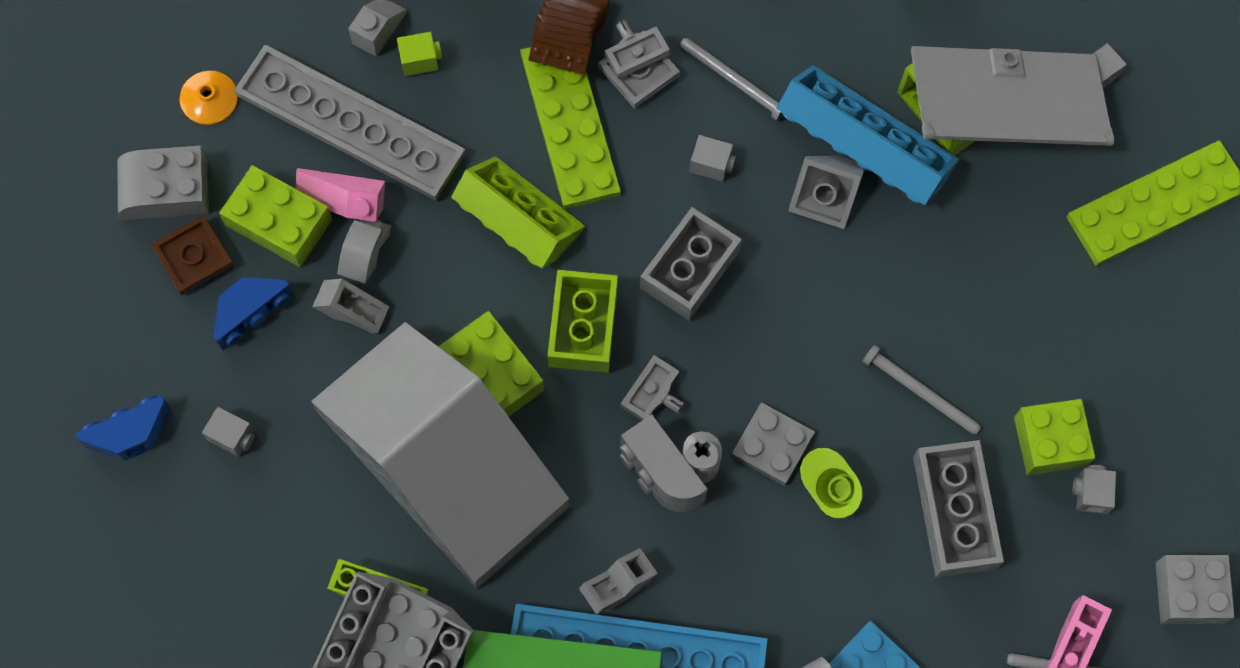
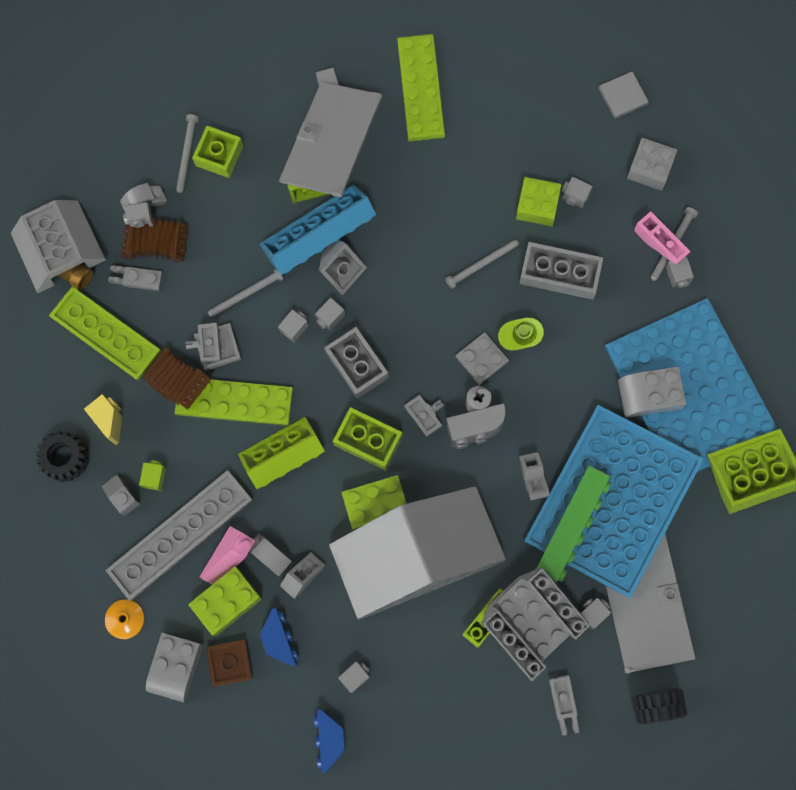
camera: 60 degrees left, 5 degrees up
(748, 201) = (329, 314): none -> light grey brick

